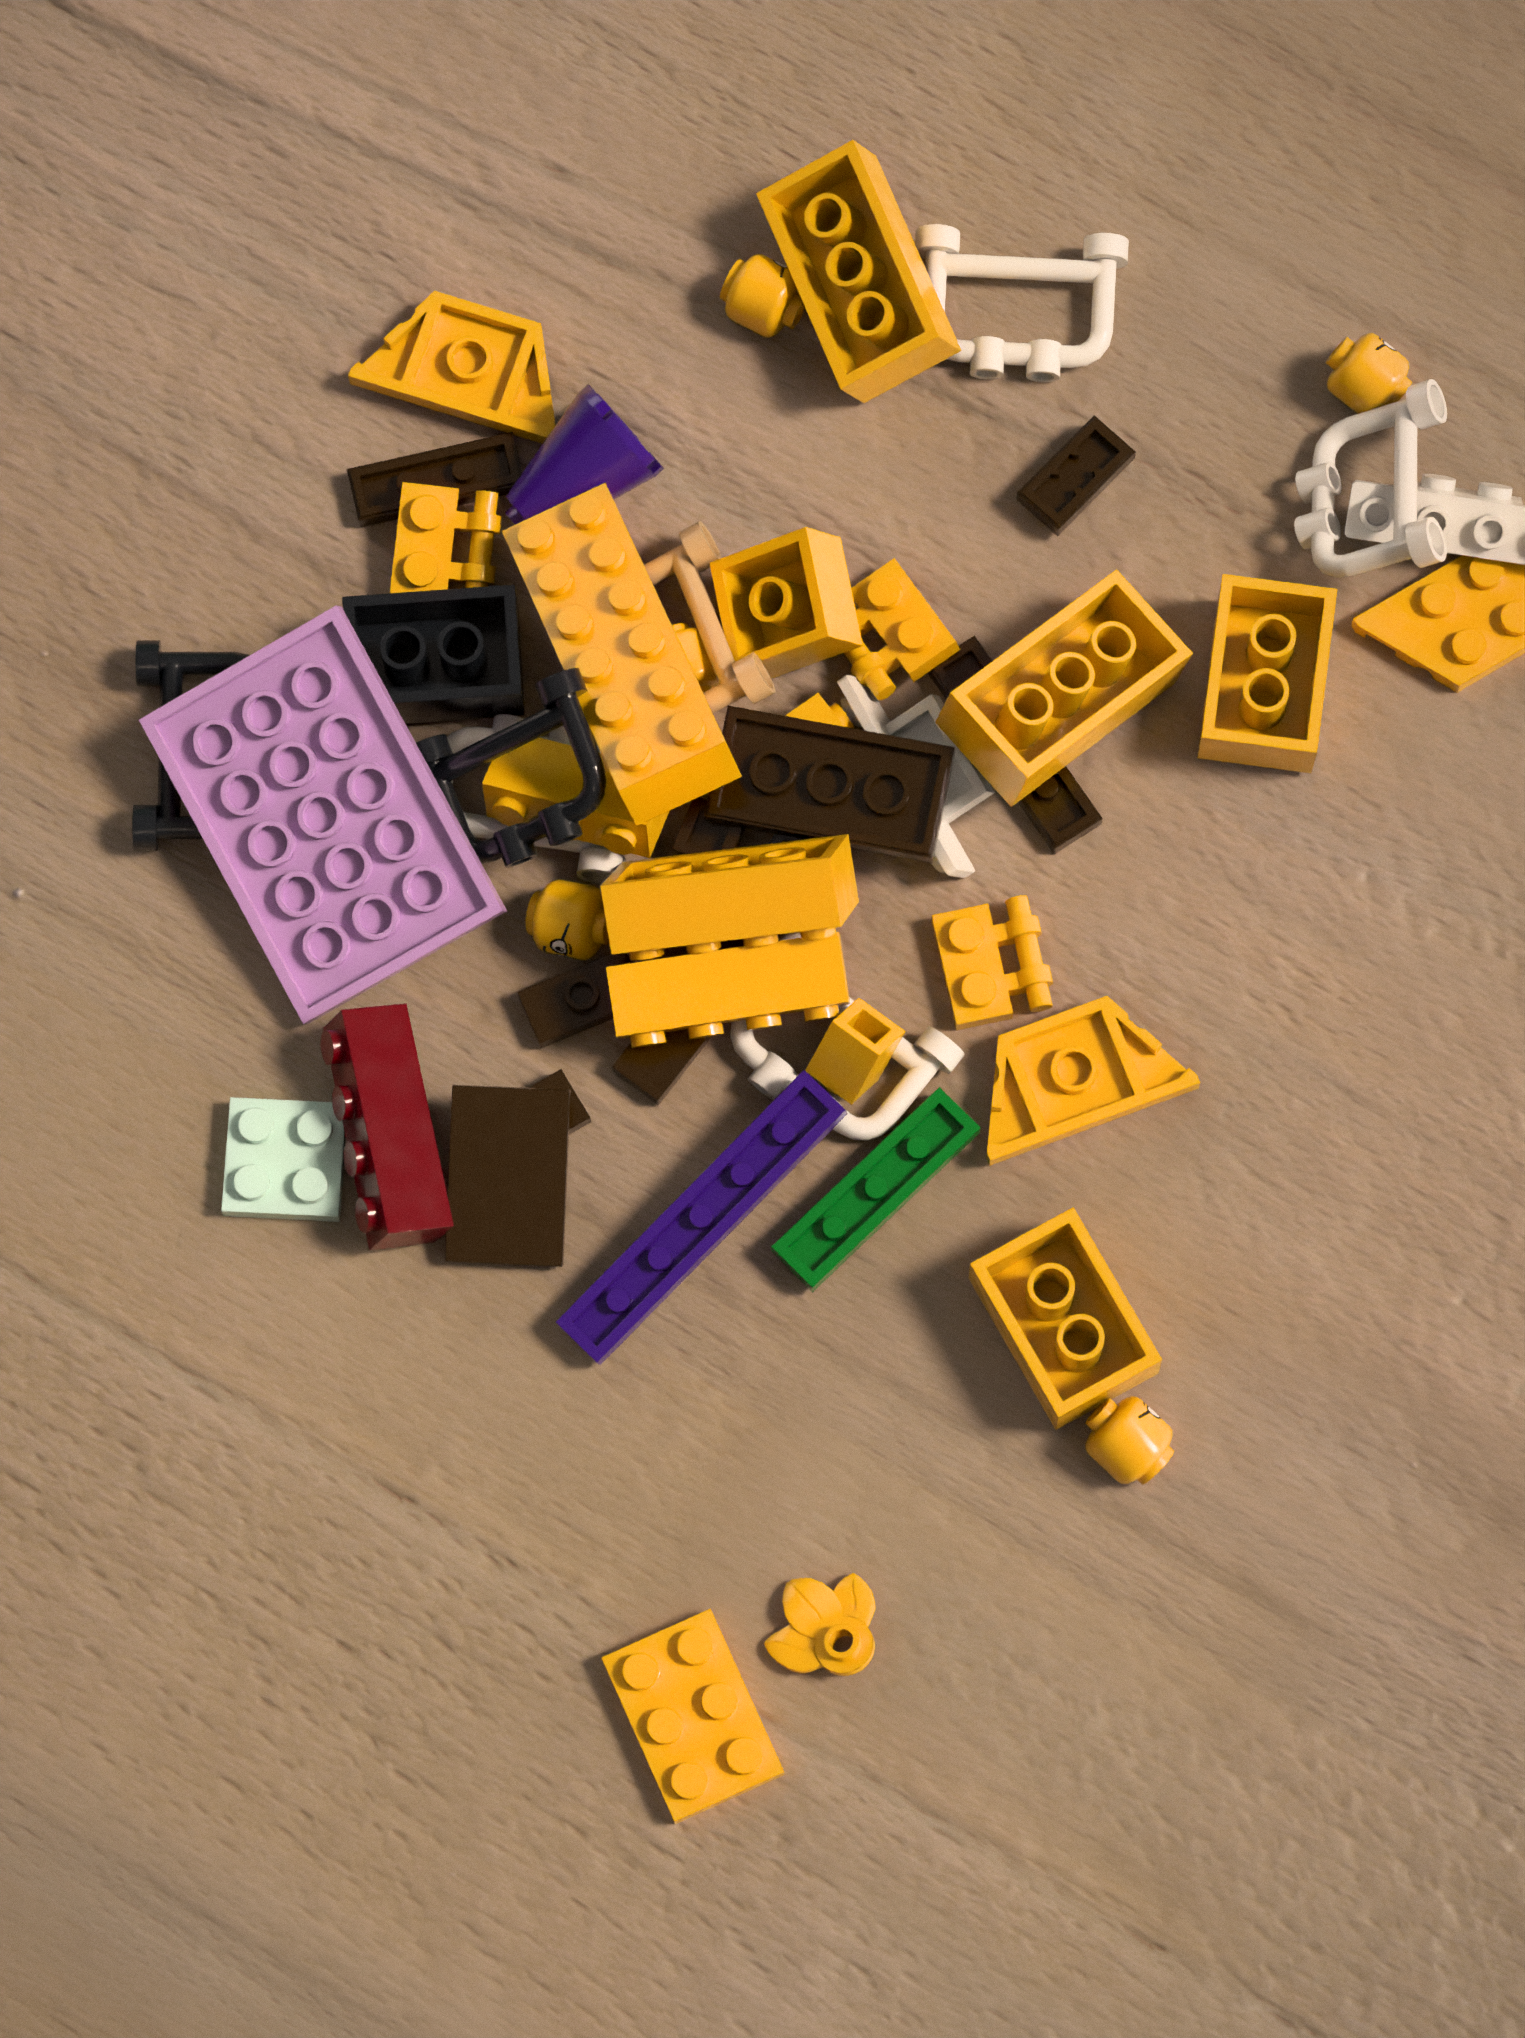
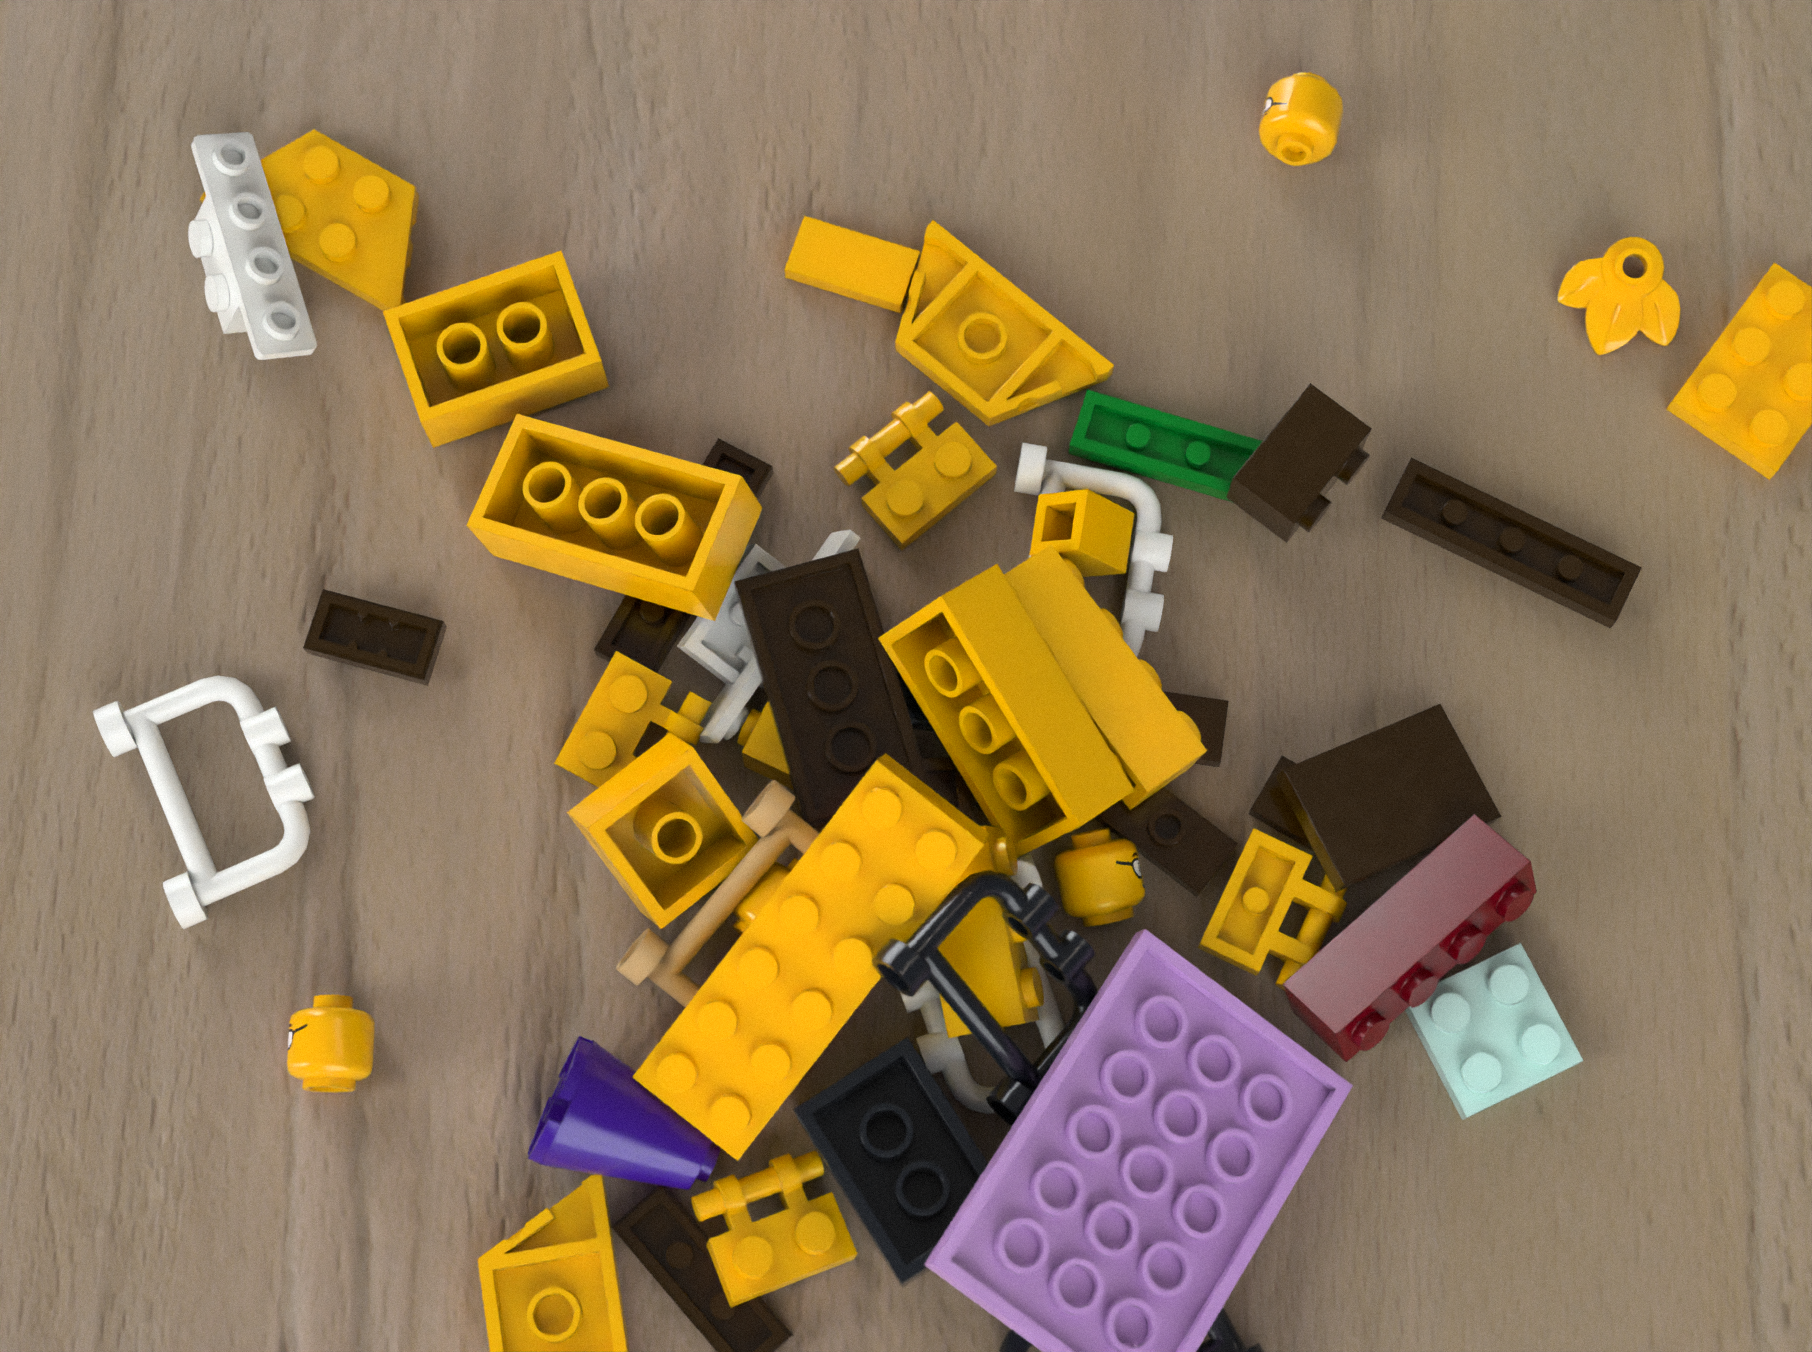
camera: 120 degrees left, 0 degrees up
(483, 1030) = (1256, 902): none -> yellow plate
(663, 1401) = (1511, 543): none -> dark brown plate
(701, 1217) = (1323, 591): dark purple plate -> none
(814, 1249) = (1300, 463): none -> dark brown brick
(858, 272) = (261, 950): yellow brick -> none
(1064, 1318) = (1227, 220): yellow brick -> none
(1202, 1004) = (852, 264): none -> yellow tile
(1319, 484) = (270, 404): white bar -> none
(1367, 373) = (133, 412): yellow head -> none

